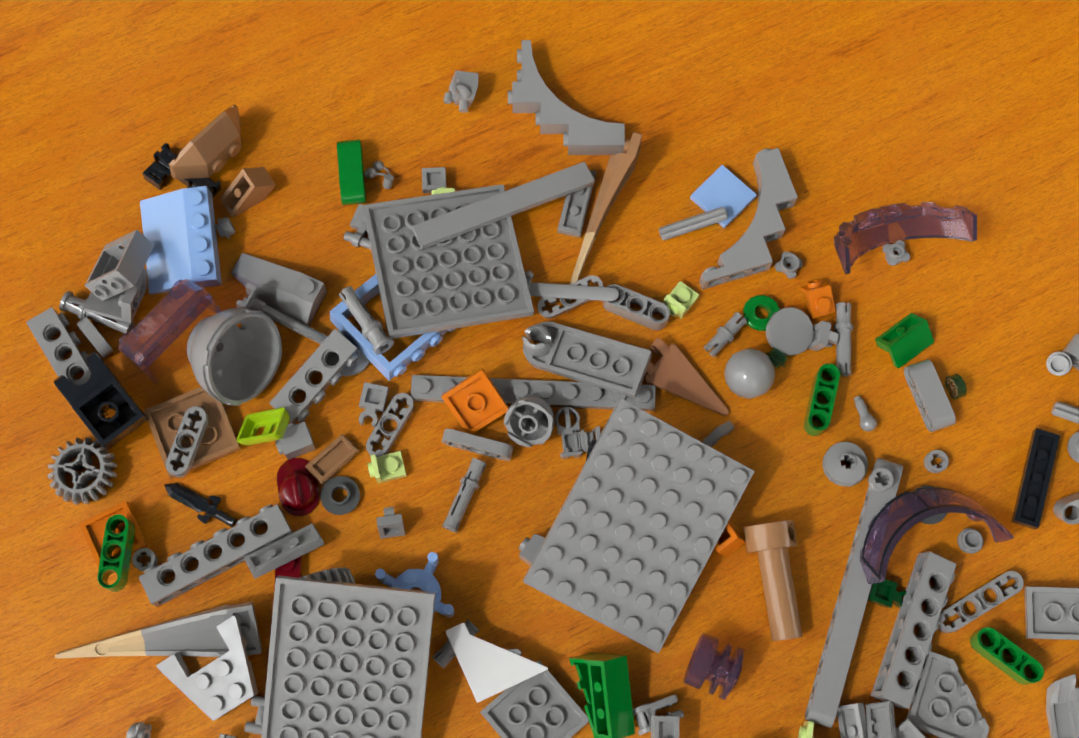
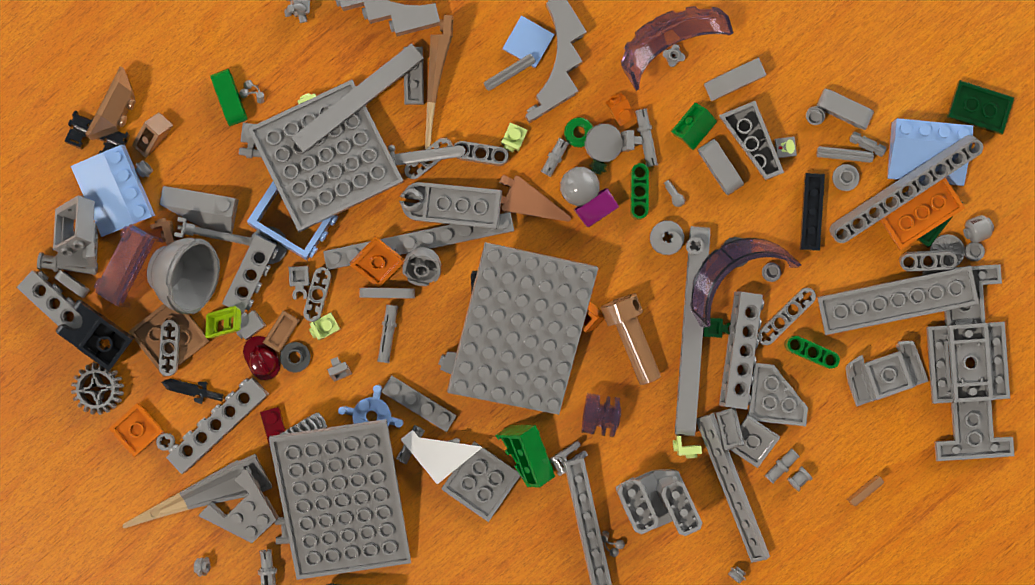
camera: 15 degrees left, 15 degrees up
(122, 563) = (137, 437): green beam -> none
(227, 297) = (168, 230): none -> medium nougat bracket
(283, 550) = (266, 410): light grey tile -> none
(370, 328) = (283, 228): light grey pin -> none
(433, 179) = (296, 87): light grey plate -> none
(480, 594) = (419, 403): none -> light grey plate
(577, 439) = (459, 270): light grey piece -> none
(718, 433) = (567, 237): light grey tile -> none
(764, 405) = (597, 208): none -> magenta piece
(792, 259) = (591, 81): light grey plate -> none
(939, 454) = (741, 218): light grey bush -> none
(955, 386) = (739, 154): clear green tile -> none
(967, 297) = (735, 79): none -> light grey slope
(975, 358) = (751, 134): none -> light grey wedge
(1014, 392) = (785, 147): none -> tile

